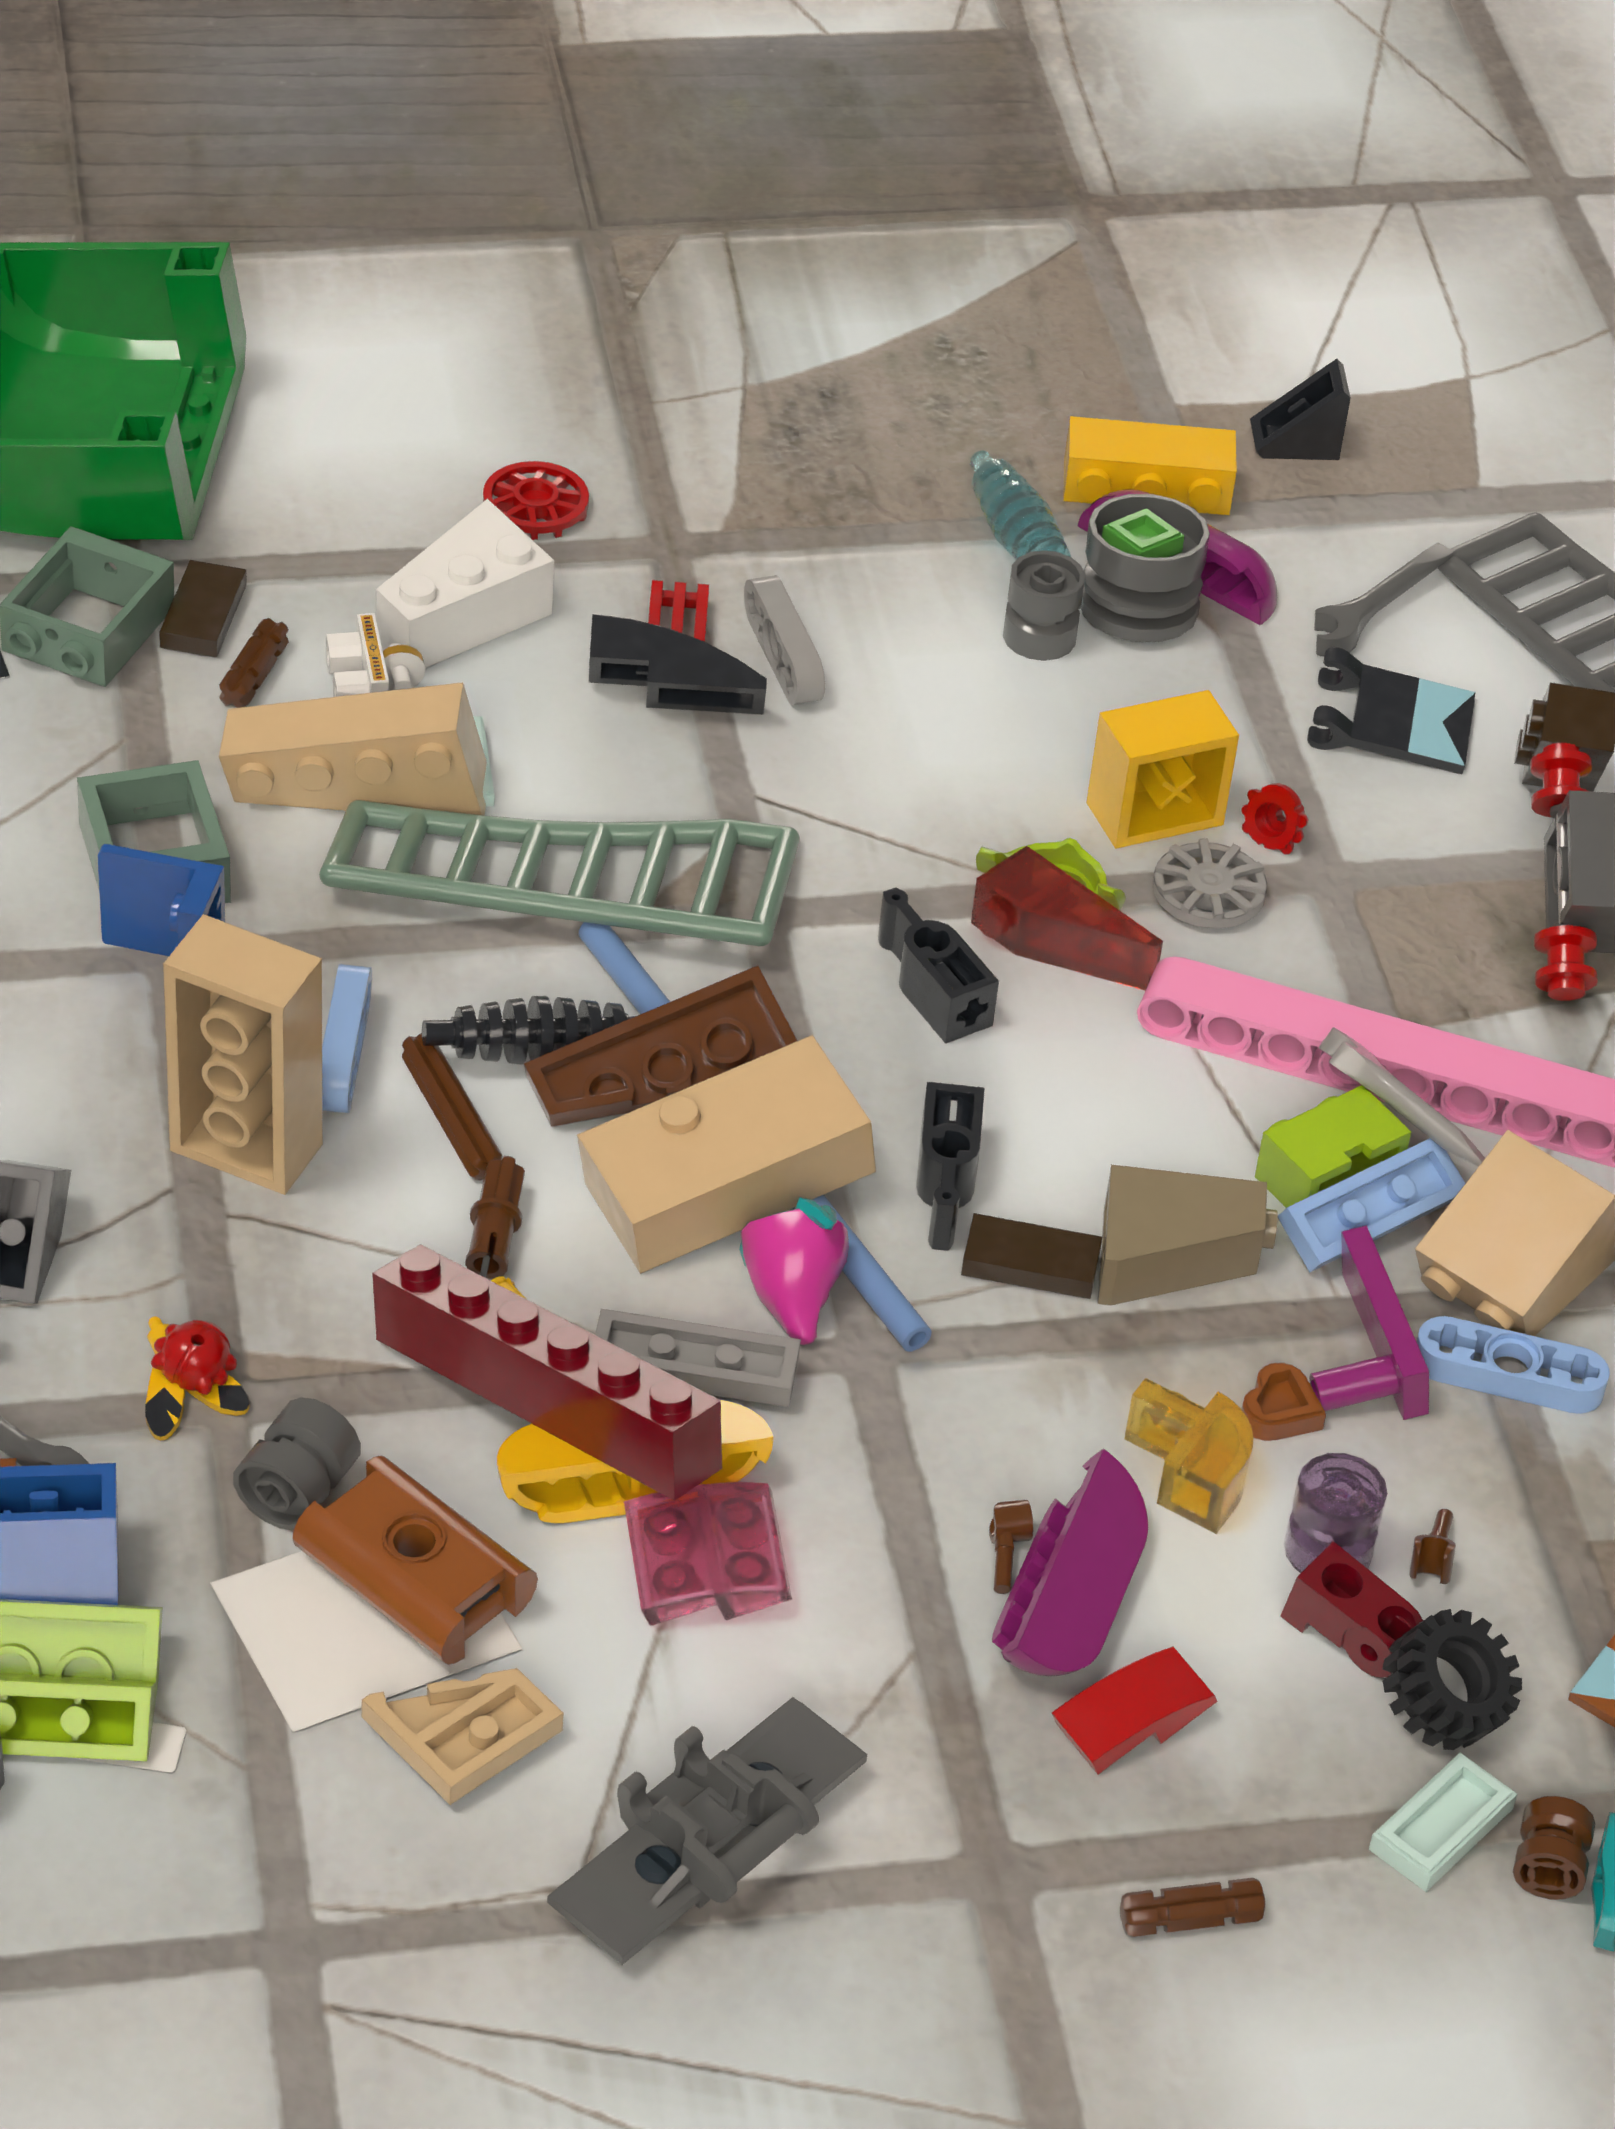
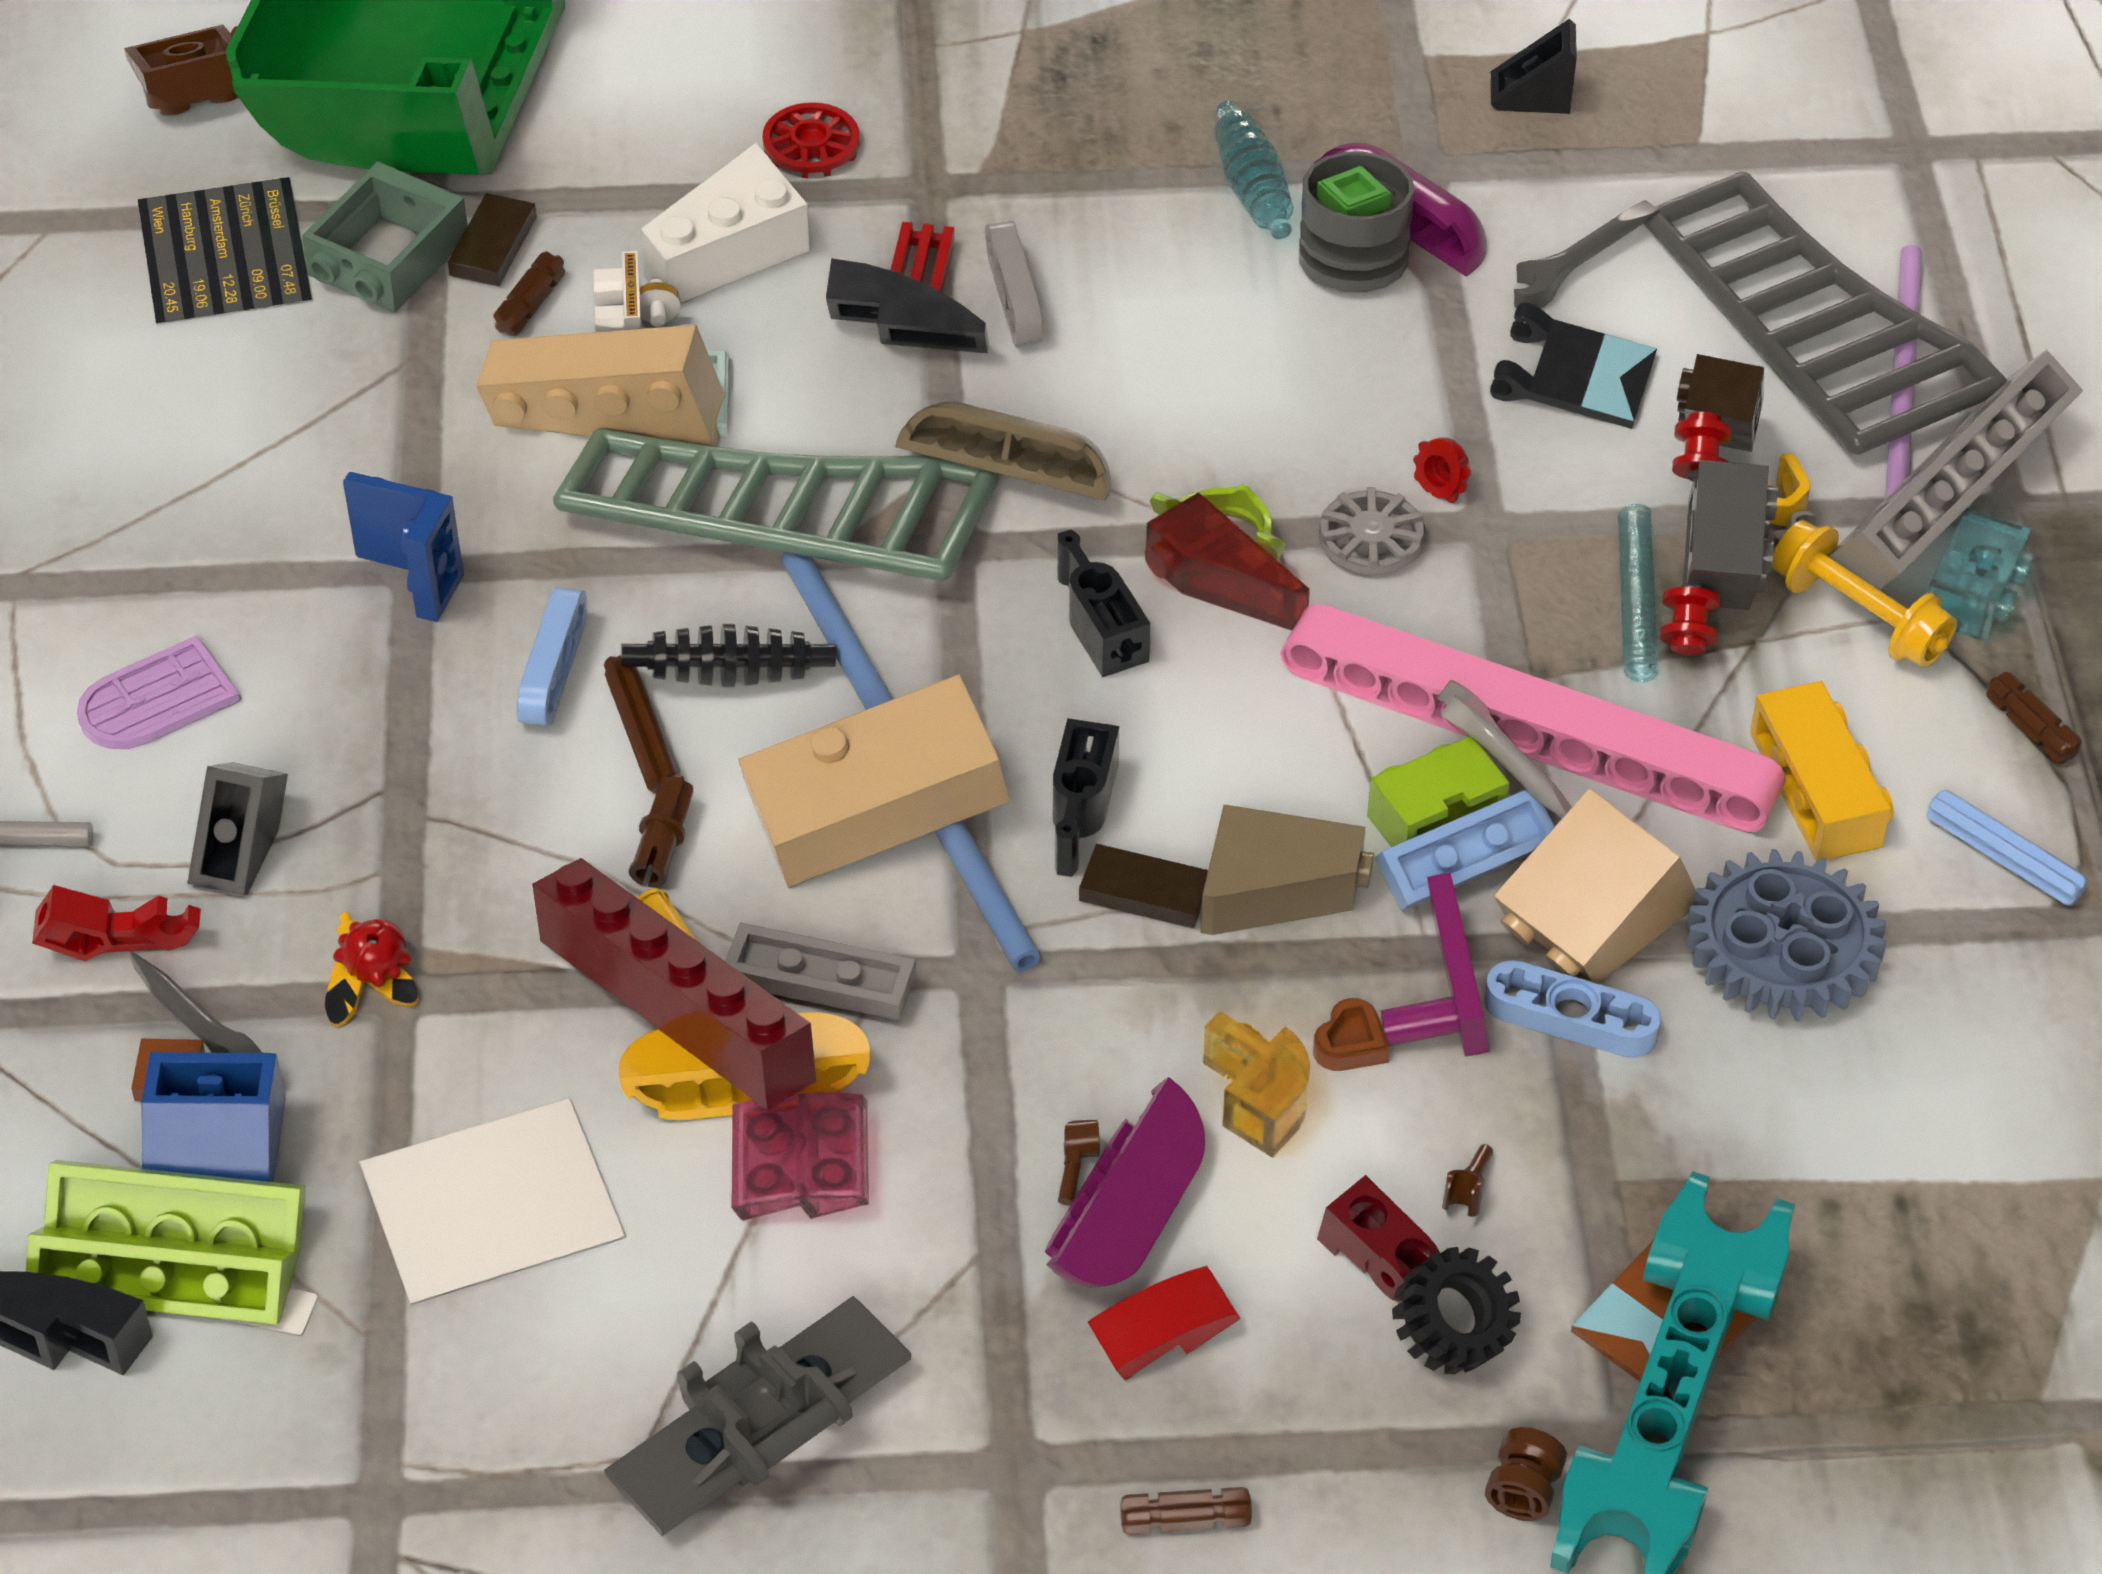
camera: 10 degrees right, 5 degrees up
(161, 793) = (415, 419): sand green window -> none
(244, 1053) = (441, 675): tan brick -> none
(297, 1462) = (453, 1050): dark grey wheel -> none
(415, 1559) = (536, 1151): dark orange piece -> none
(465, 1728) = (559, 1309): tan wing -> none
(661, 1051) = (832, 679): reddish brown wing -> none
(795, 1263) = (921, 887): dark pink hat -> none
(810, 805) = (1008, 447): none -> dark tan brick
(1043, 605) = (1258, 255): dark grey wheel -> none
(1155, 458) = (1399, 116): yellow brick -> none
(1162, 768) = (1338, 420): yellow brick -> none
(1335, 1501) = (1379, 1140): clear purple wheel -> none
(1442, 1822) = (1431, 1442): light aqua tile -> none
(1503, 938) = (1626, 591): none -> clear light blue piece

